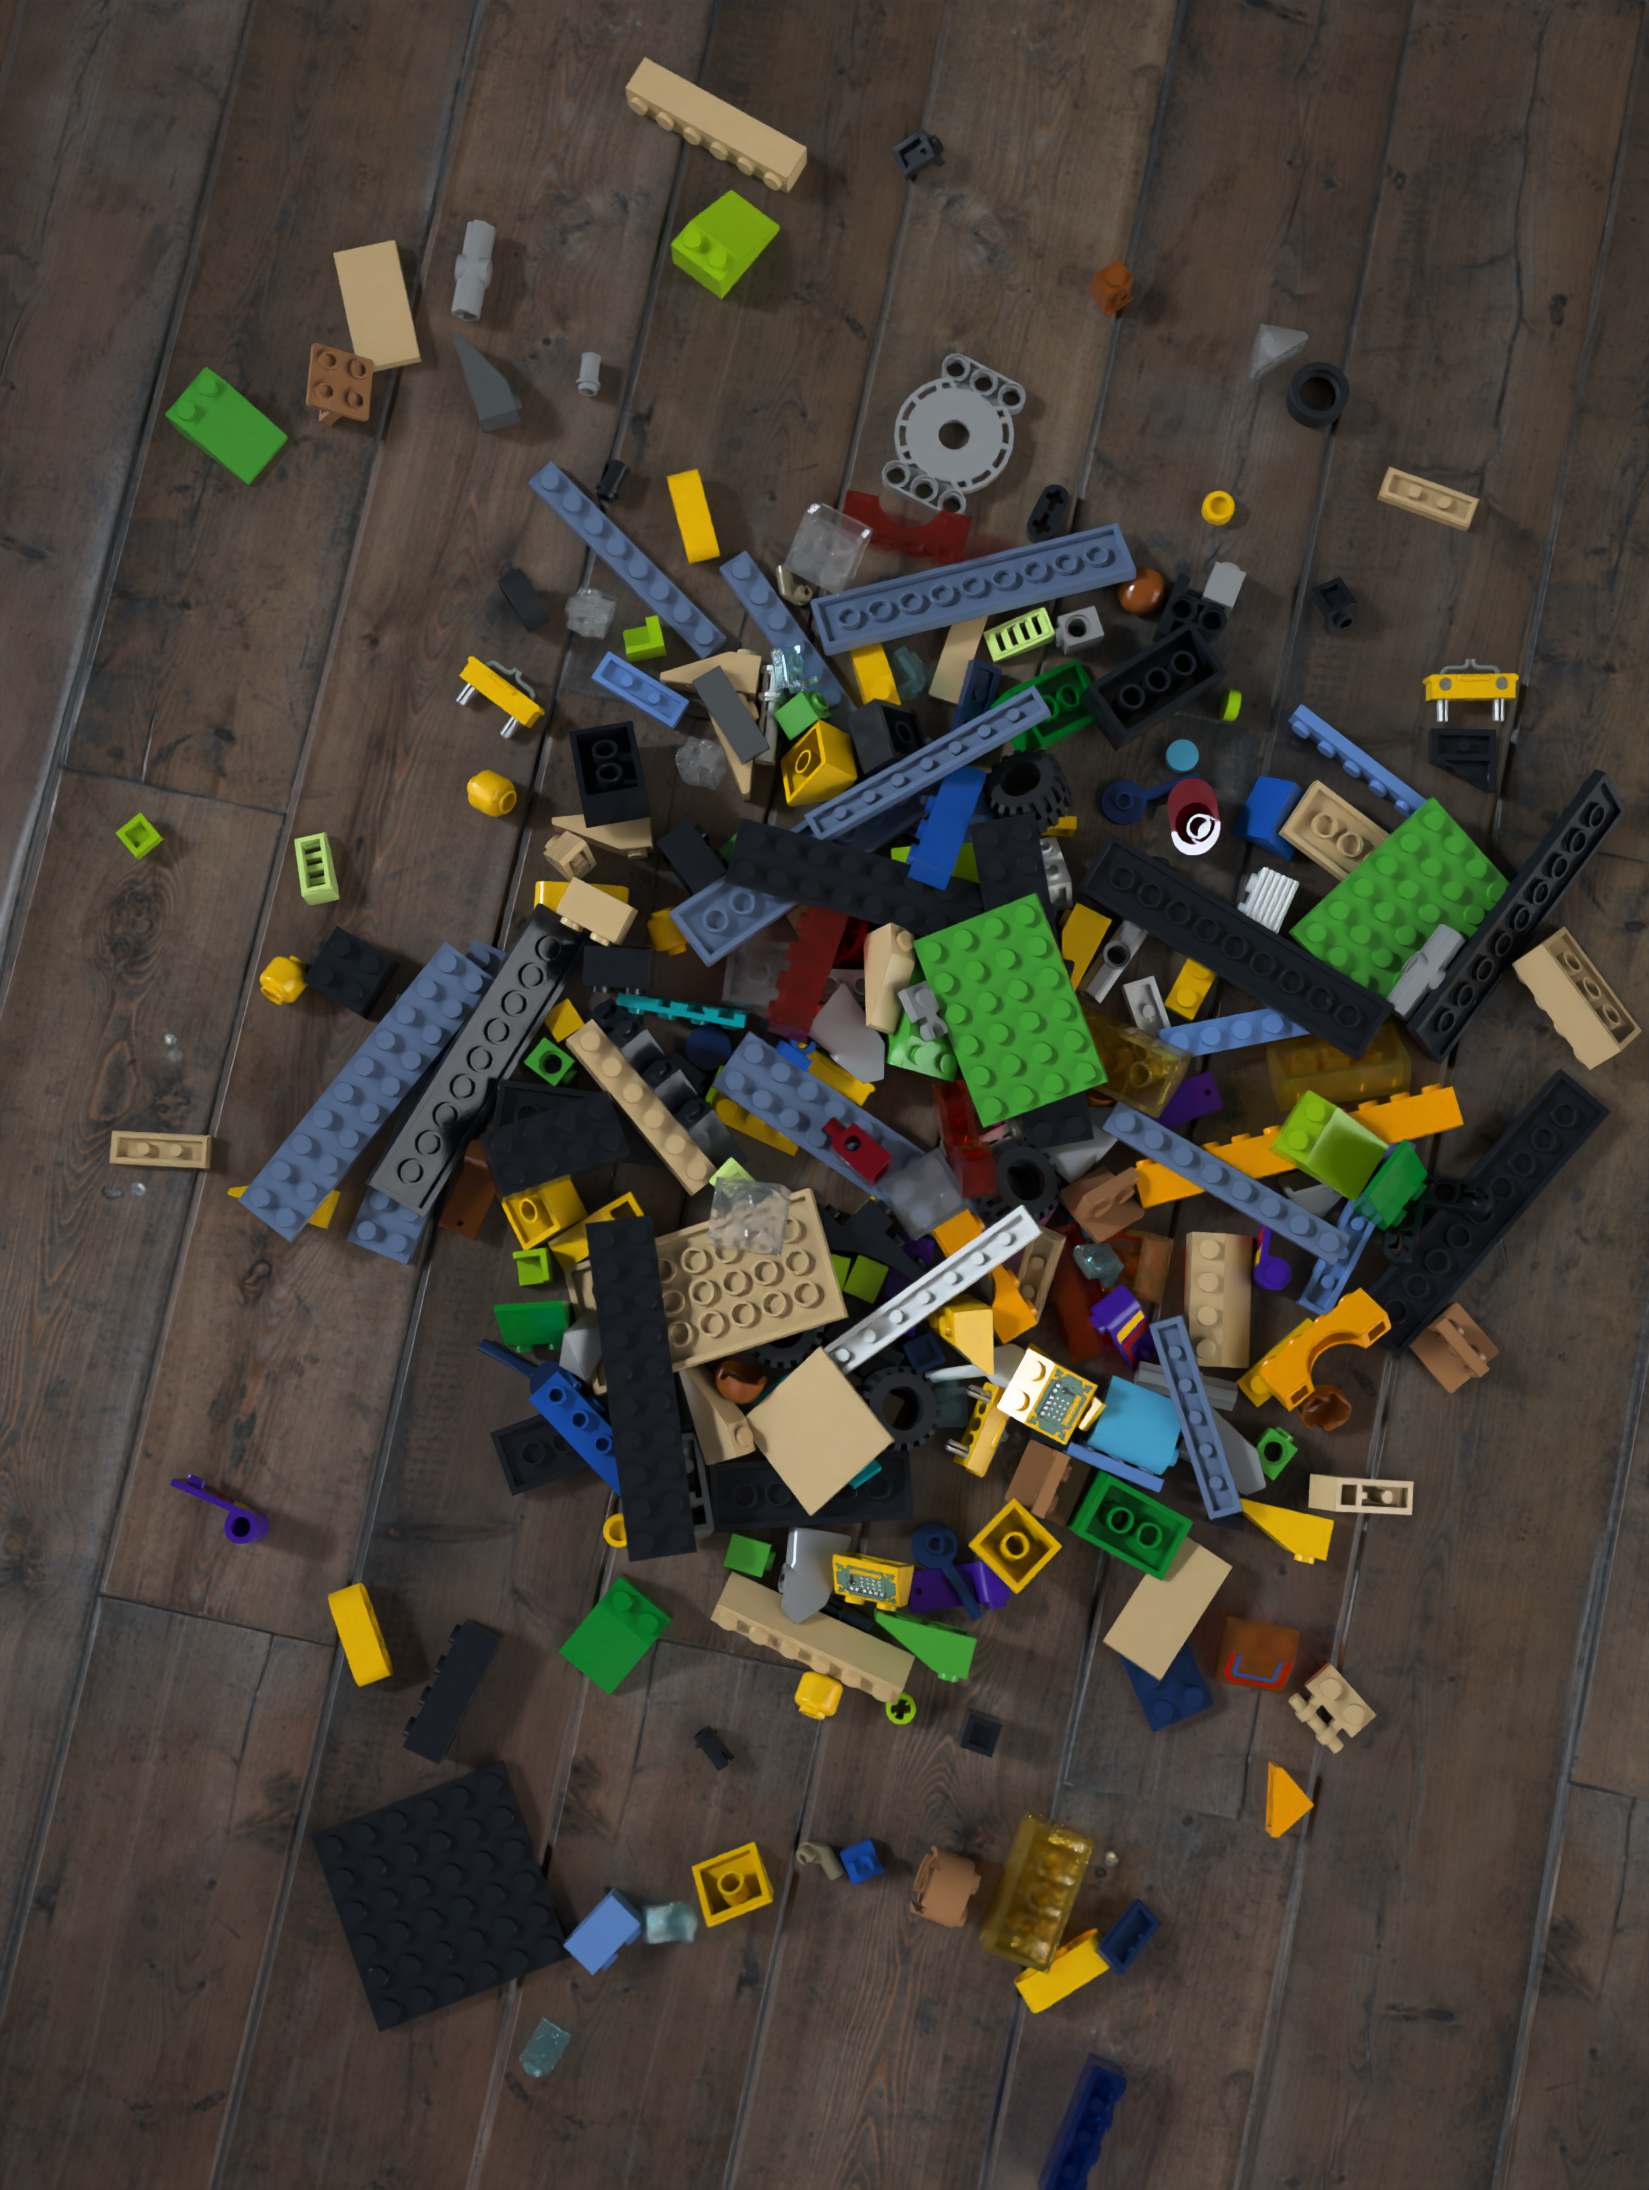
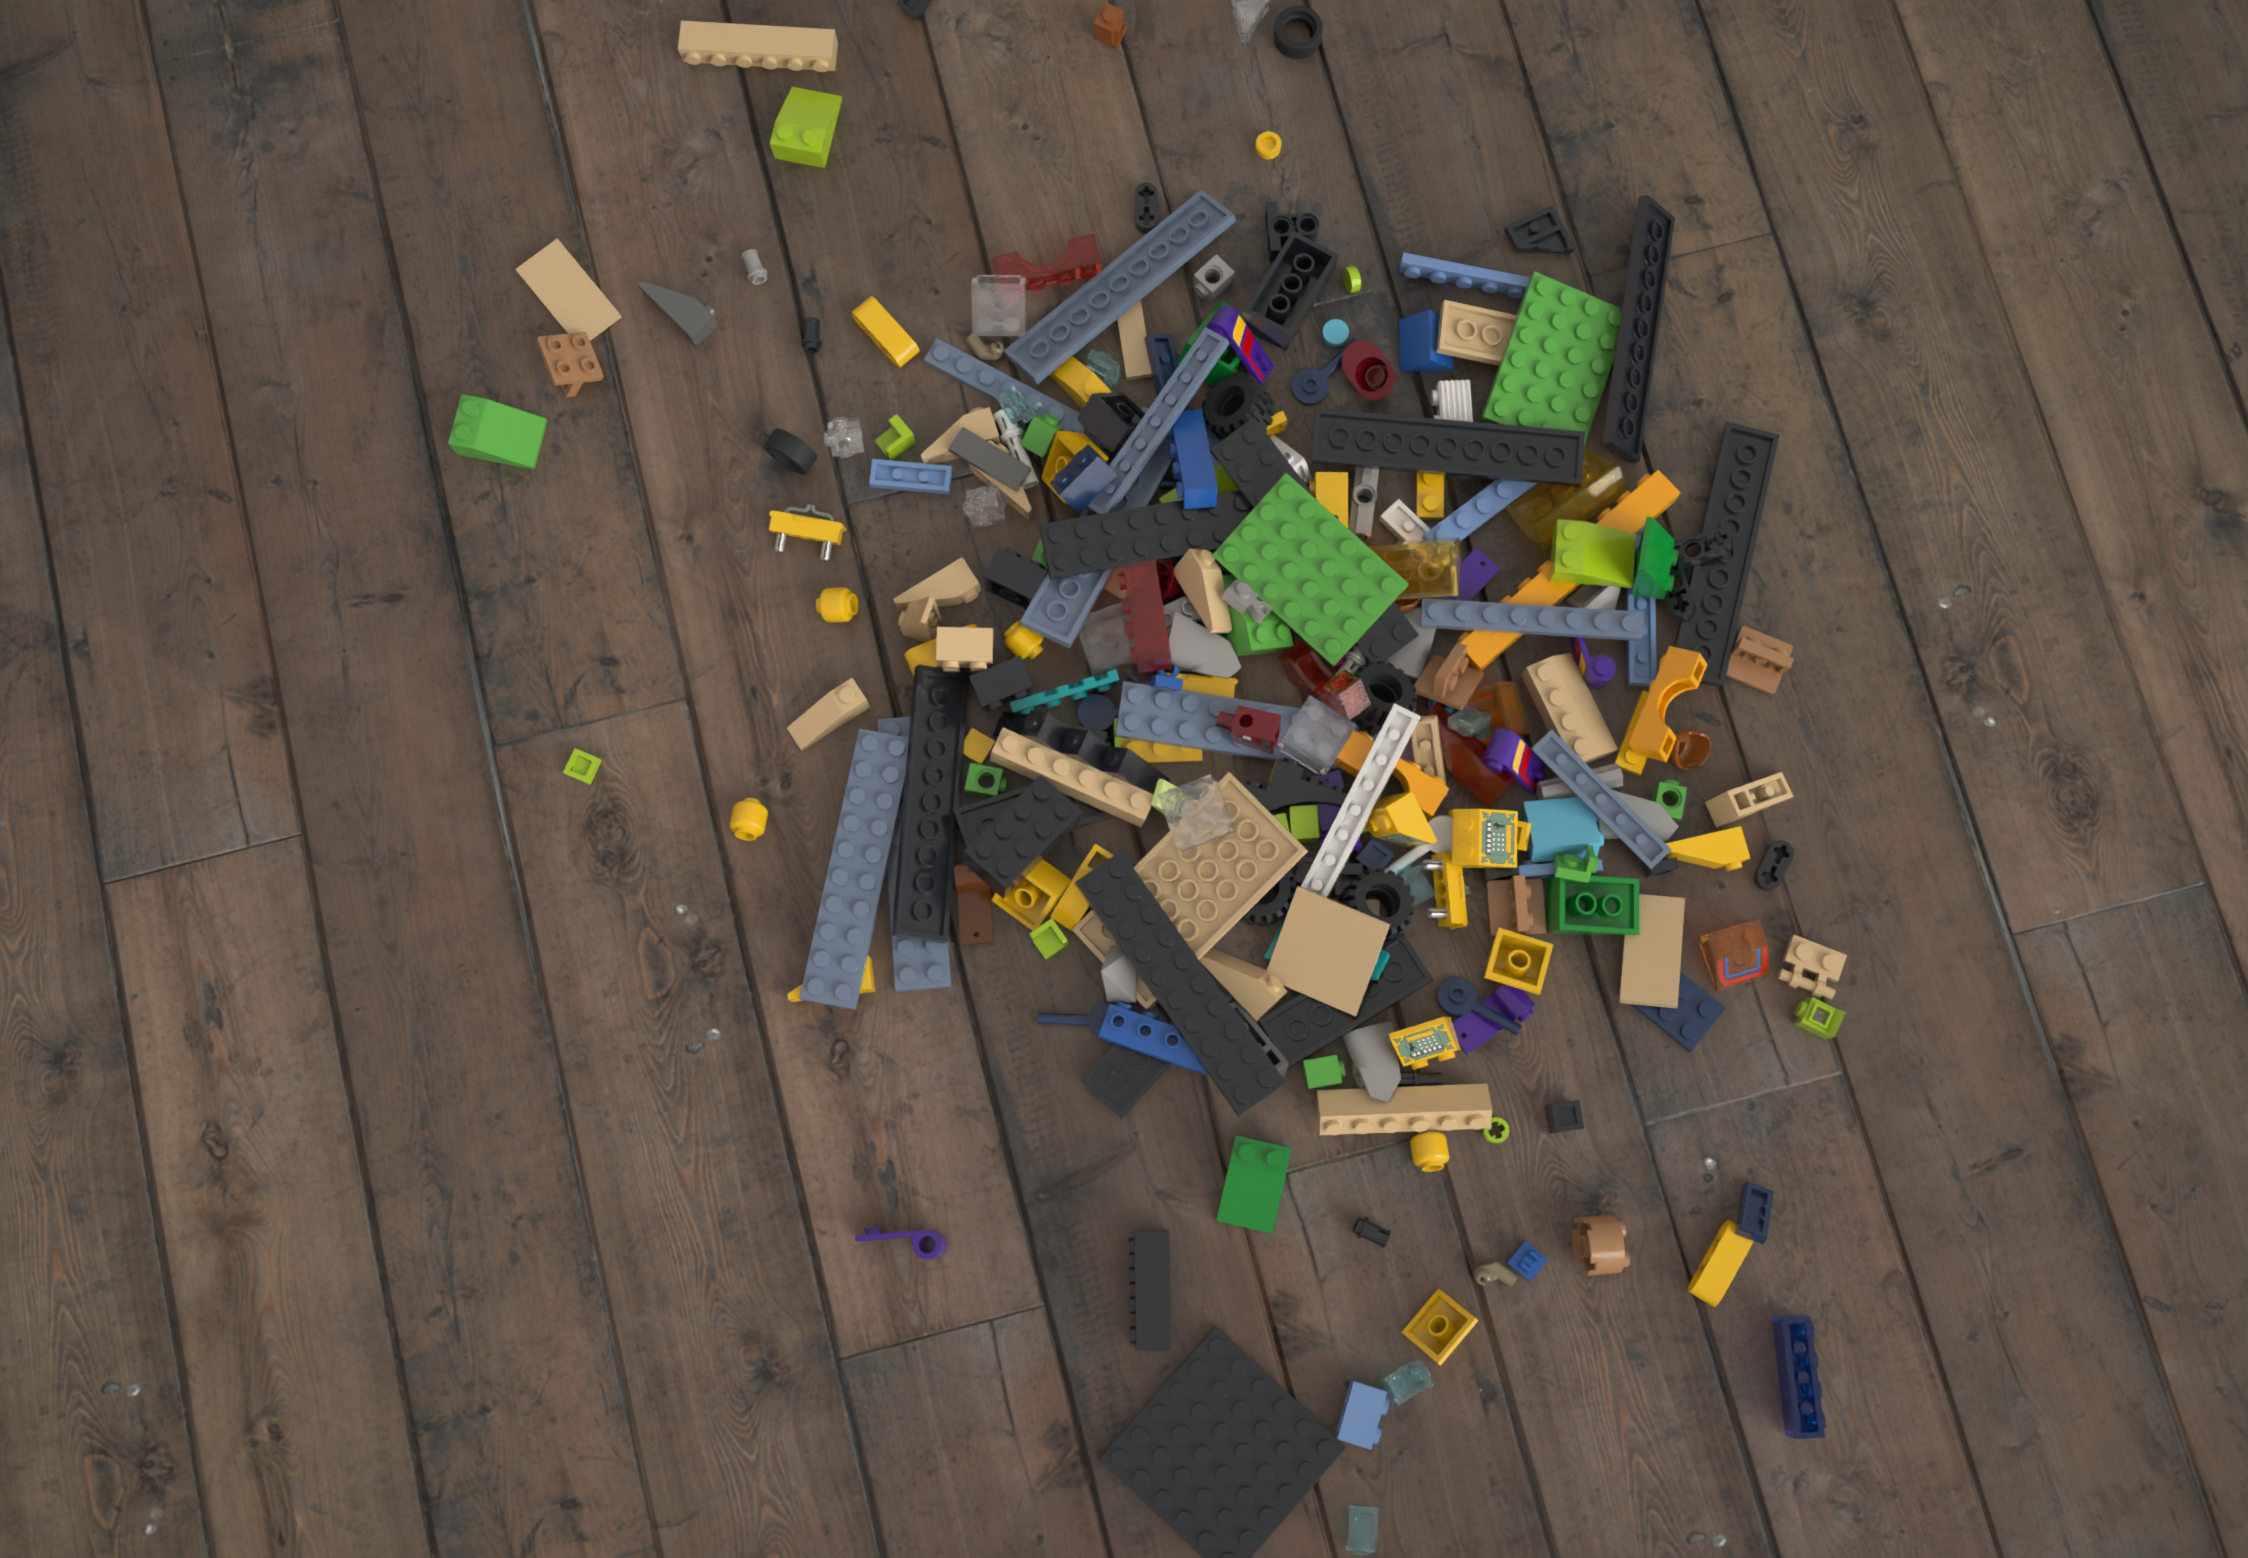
camera: 25 degrees left, 5 degrees down
(161, 1149) = (716, 994): tan tile -> none
(322, 888) = (741, 739): yellowish green slope -> none
(351, 972) = (798, 788): black brick -> none
(360, 1634) = (1058, 1284): yellow beam -> none
(425, 908) = (828, 714): none -> tan slope
(473, 271) = (628, 233): light grey piece -> none
(534, 1323) = (1074, 977): green slope -> none
(609, 774) = (921, 545): black brick -> none
(615, 1531) = (1215, 1105): yellow tile -> none
(627, 561) = (851, 388): sand blue plate -> none
(738, 1382) = (1248, 948): dark orange hair -> none
(816, 788) = (1083, 478): none -> dark blue brick
(937, 1644) = (1499, 1066): bright green slope -> none
(947, 468) = (1041, 211): light grey piece -> none
(1035, 1892) = (1669, 1213): clear yellow slope -> none
(1038, 615) = (1172, 289): yellowish green slope -> none
(1066, 699) = (1232, 326): none -> dark purple door
(1128, 1477) = (1576, 868): none -> bright green bracket
(1144, 594) = (1246, 231): dark orange hair -> none
(1223, 586) = (1302, 196): light grey brick -> none
(1284, 1801) = (1814, 1052): light orange slope -> none
(1309, 1767) = (1818, 1018): none -> lime window
(1336, 605) = (1390, 172): black bracket -> none
(1354, 1585) = (1779, 868): none -> black beam
(1424, 971) = (1594, 398): light grey piece -> none
(1427, 499) = (1415, 68): tan tile -> none
(1470, 687) = (1518, 184): yellow piece -> none
(1576, 998) = (1711, 367): tan slope -> none

